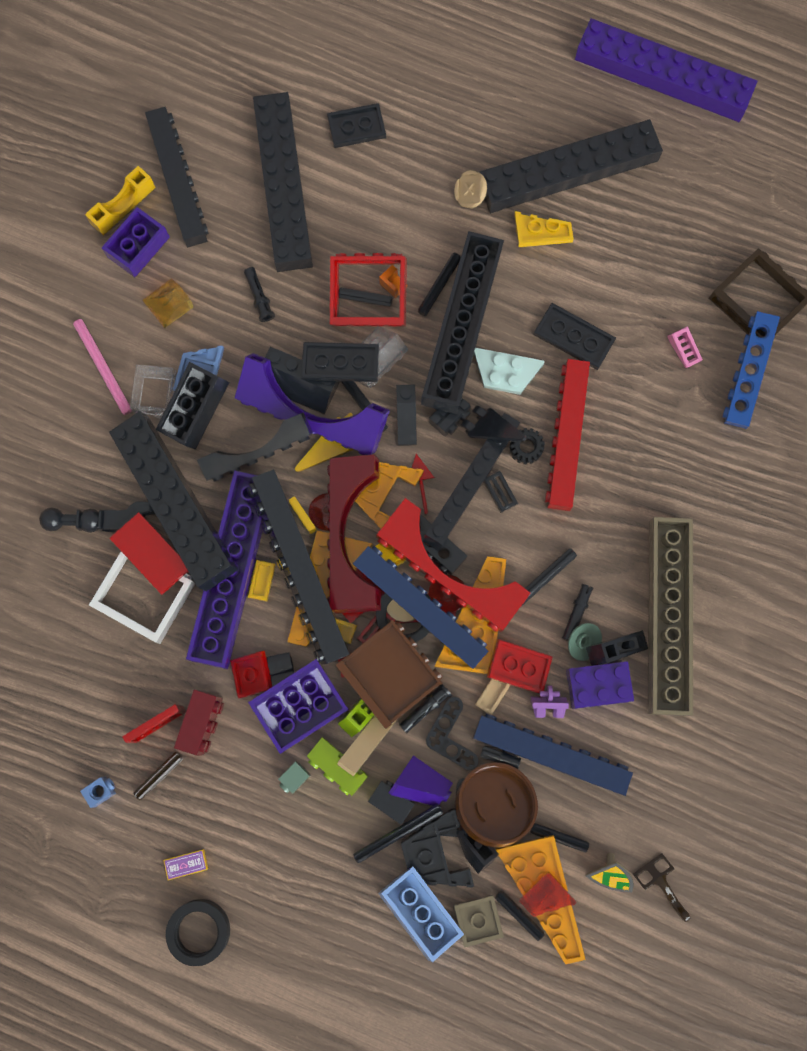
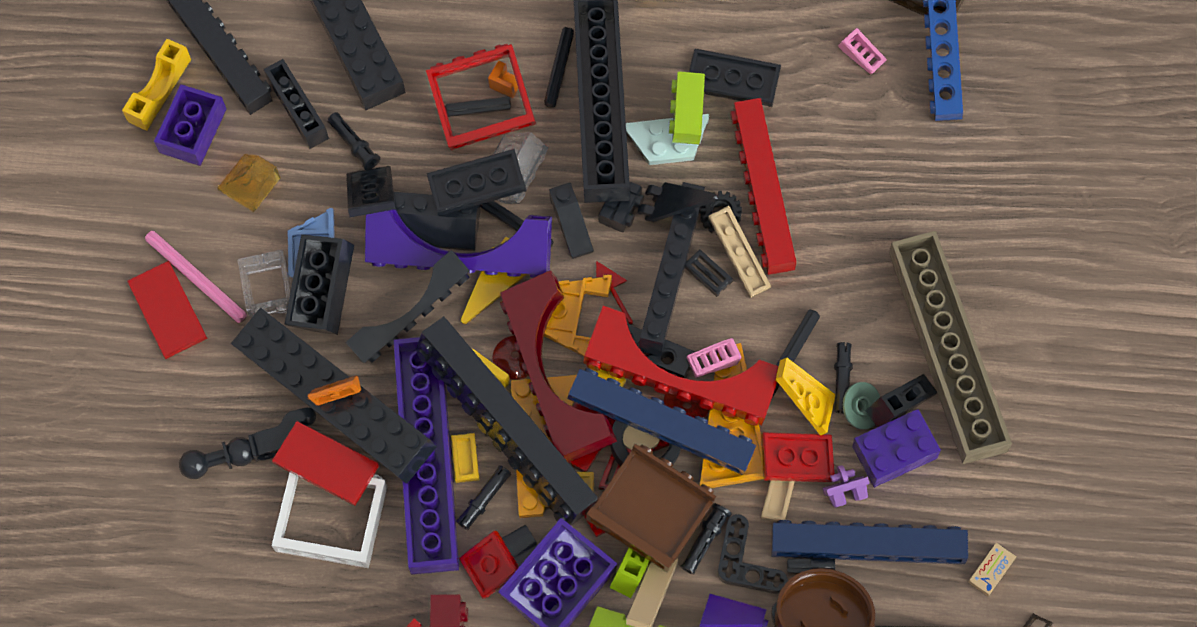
camera: 15 degrees left, 10 degrees down
(72, 386) = (167, 309): none -> red tile
(171, 500) = (335, 390): none -> orange slope
(223, 250) = (296, 104): none -> black brick
(255, 343) = (370, 191): none -> black tile
(264, 618) = (478, 504): none -> black pin
(496, 565) = (728, 352): none -> bright pink slope
(528, 352) = (687, 108): none -> lime wedge
(530, 483) = (739, 251): none -> tan tile
(544, 620) = (807, 393): none -> yellow wing
(642, 807) = (992, 569): none -> tan tile

